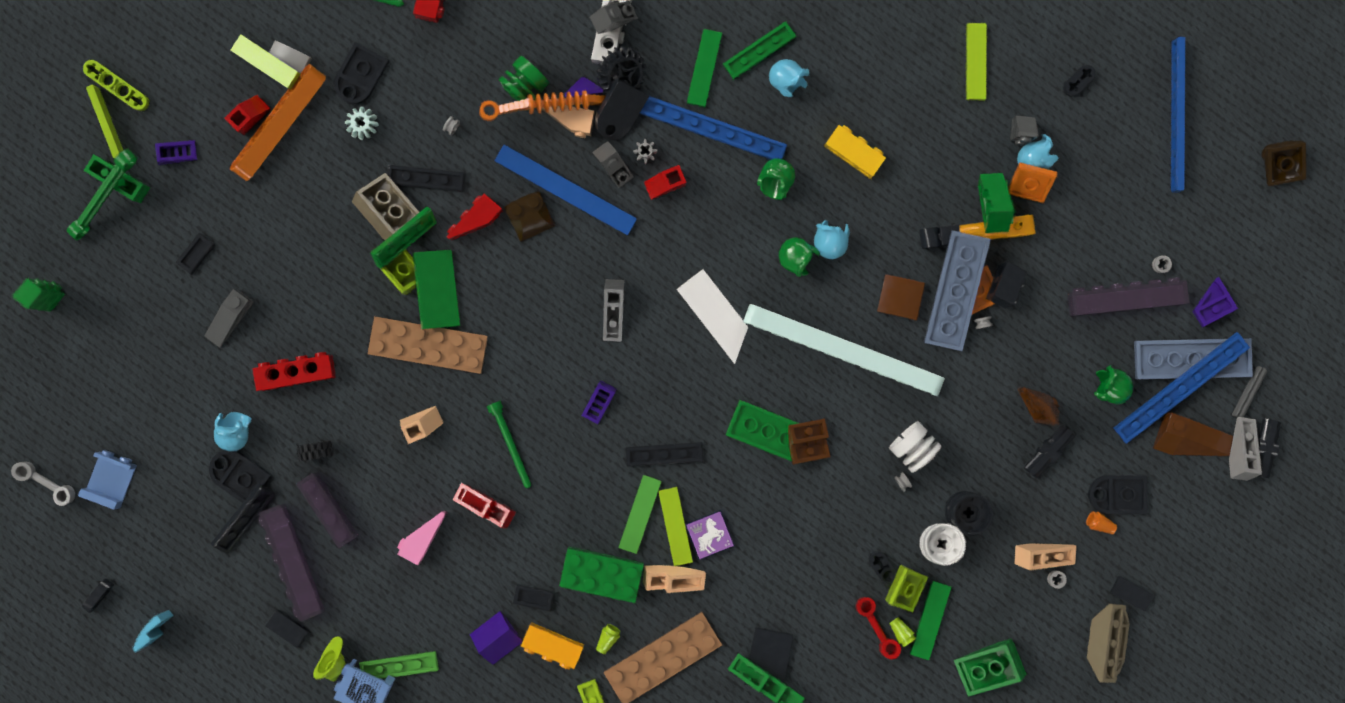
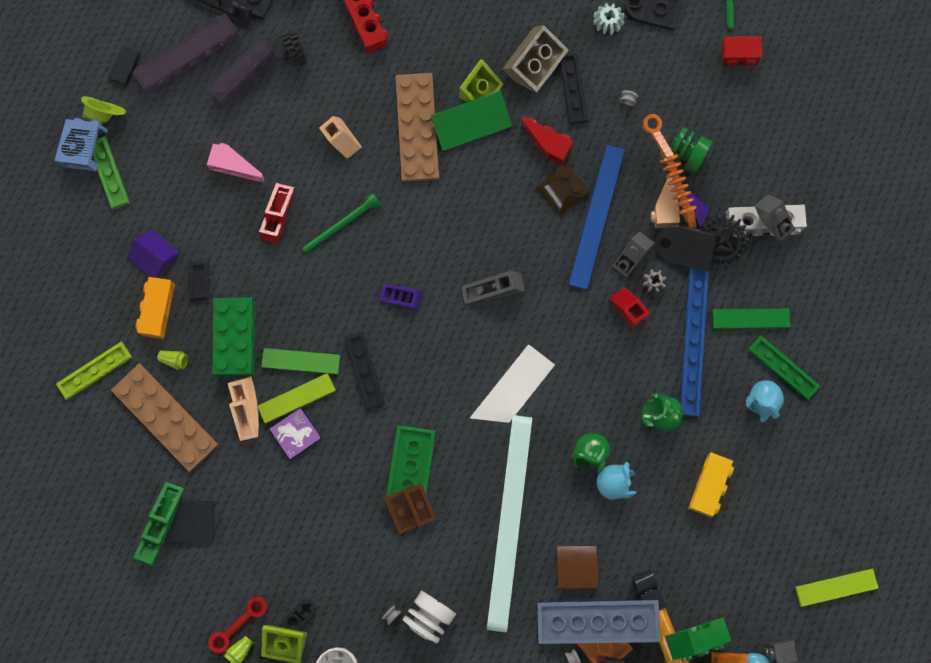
camera: 80 degrees right, 10 degrees down
(403, 237) = (511, 78): green tile -> none

